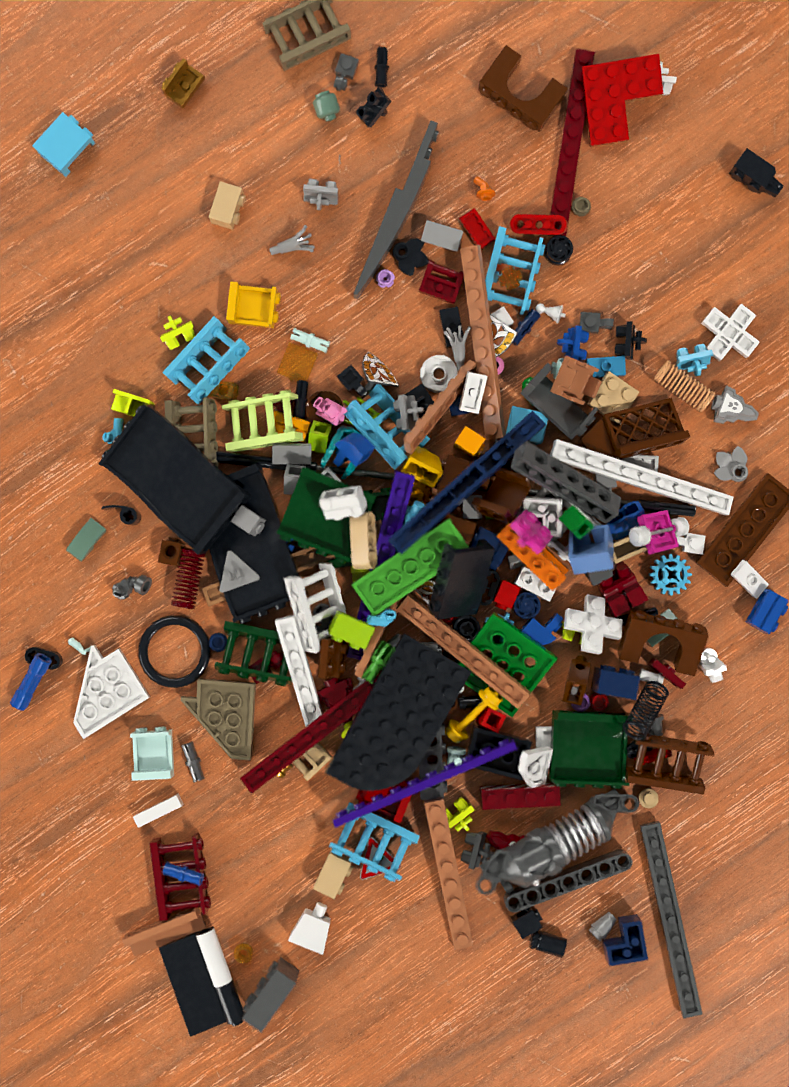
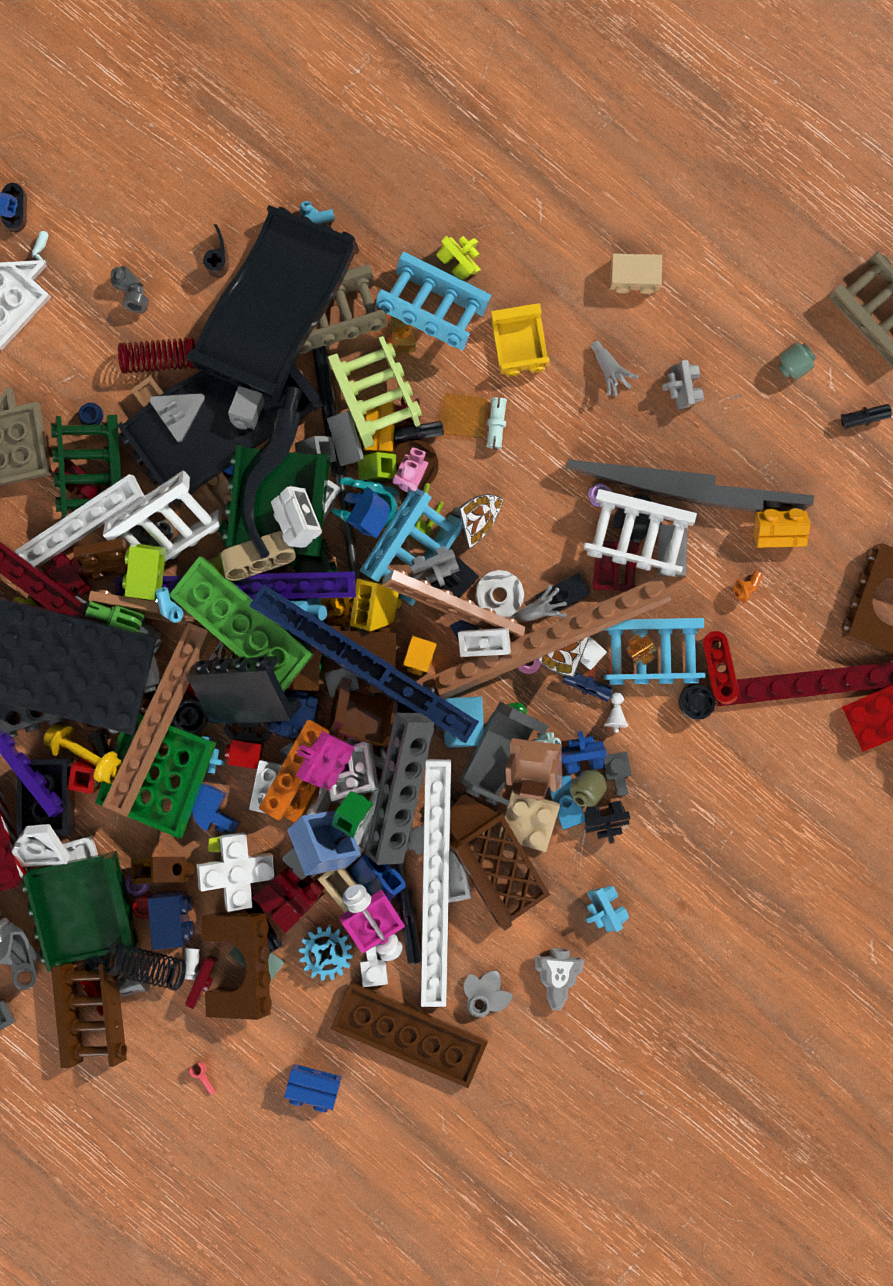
camera: 75 degrees right, 0 degrees up
(63, 142) = (657, 49): medium azure panel -> none
(86, 539) = (172, 217): sand green slope -> none
(128, 403) = (355, 222): neon yellow panel -> none
(163, 555) = (177, 318): reddish brown brick -> none
(174, 682) = (65, 325): black wedge -> none
(182, 83) = (773, 174): pearl gold bracket -> none
(294, 515) = (266, 461): none -> black animal
(345, 68) = (852, 372): dark grey plate -> none
(351, 380) = (461, 489): black plate -> none
(374, 107) = (811, 421): black hips -> none
(413, 238) = (657, 514): none -> white fence
(448, 151) = (781, 528): none -> light orange brick
(455, 754) = (29, 745): light aqua bush -> none
(477, 229) = (694, 592): red plate -> none
(526, 605) = (238, 783): dark blue wheel -> none
(581, 206) = (761, 715): dark tan plate -> none
(601, 346) = (588, 788): none -> olive head
(648, 798) = (40, 1000): tan plate -> none
(666, 367) = (556, 938): light nougat piece -> none
(712, 665) = (224, 1034): white hips -> none
(730, 332) = (653, 947): white plate -> none
(738, 692) = (202, 1076): none -> coral hand
(749, 579) = (347, 1054): white plate -> none
(756, 174) = (864, 925): black hinge -> none

